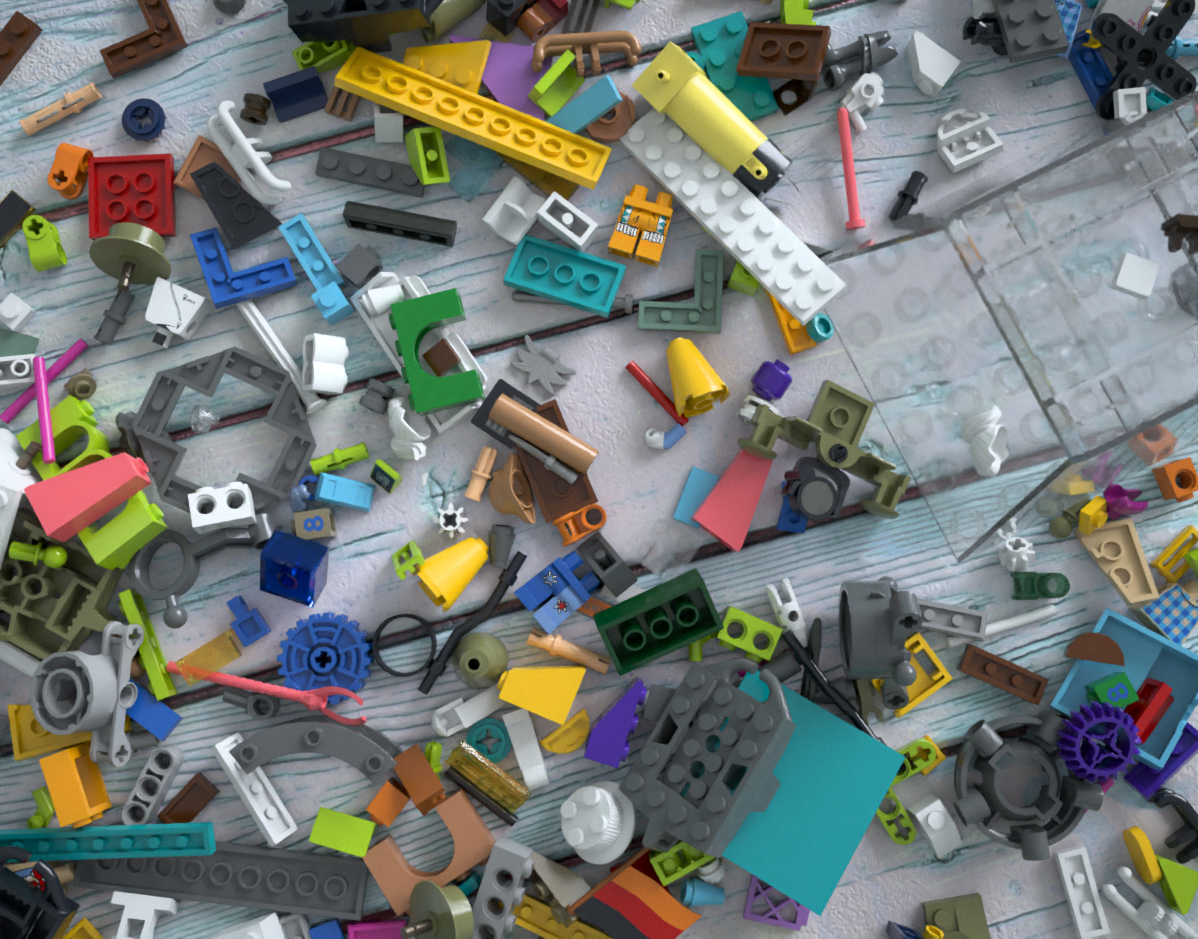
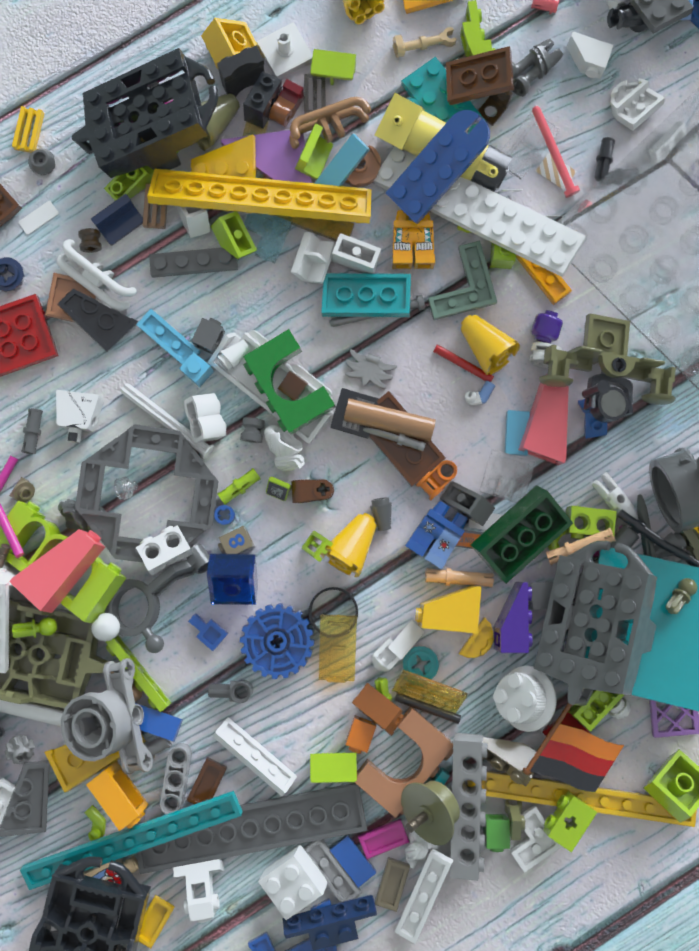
camera: 15 degrees left, 0 degrees up
(123, 579) = (105, 627): none -> white piece
(131, 255) = (31, 379): olive piece -> none
(204, 63) = (38, 217): none -> white sticker
(208, 658) = (188, 667): clear yellow panel -> none
(230, 287) = (117, 380): blue plate -> none
(297, 497) = (217, 523): sand blue arm -> none
(312, 699) = (279, 674): coral piece -> none
(344, 492) = (251, 510): medium azure tile -> none
(357, 745) = (296, 698): dark grey fence -> none
(395, 690) = (337, 648): none -> clear yellow piece
(400, 223) = (228, 294): pearl dark grey brick -> none
(420, 490) = (307, 490): none -> reddish brown piece
(438, 665) = (395, 537): black bar -> none
(443, 521) = (337, 500): white gear -> none
(481, 473) = (350, 464): light nougat axle -> none
(490, 654) = (386, 598): olive cone -> none
(511, 490) = (377, 470): medium nougat hat -> none
(526, 747) = (451, 659): white leg -> none
(699, 144) = (440, 164): none -> blue plate
(699, 893) = (615, 729): medium azure cone -> none
(710, 656) = (570, 548): none -> light nougat pin
(820, 328) = (571, 277): teal tile -> none
(834, 750) = (681, 596): none -> olive axle
(836, 191) = (549, 171): none -> sticker
(863, 95) = (546, 92): white piece -> none

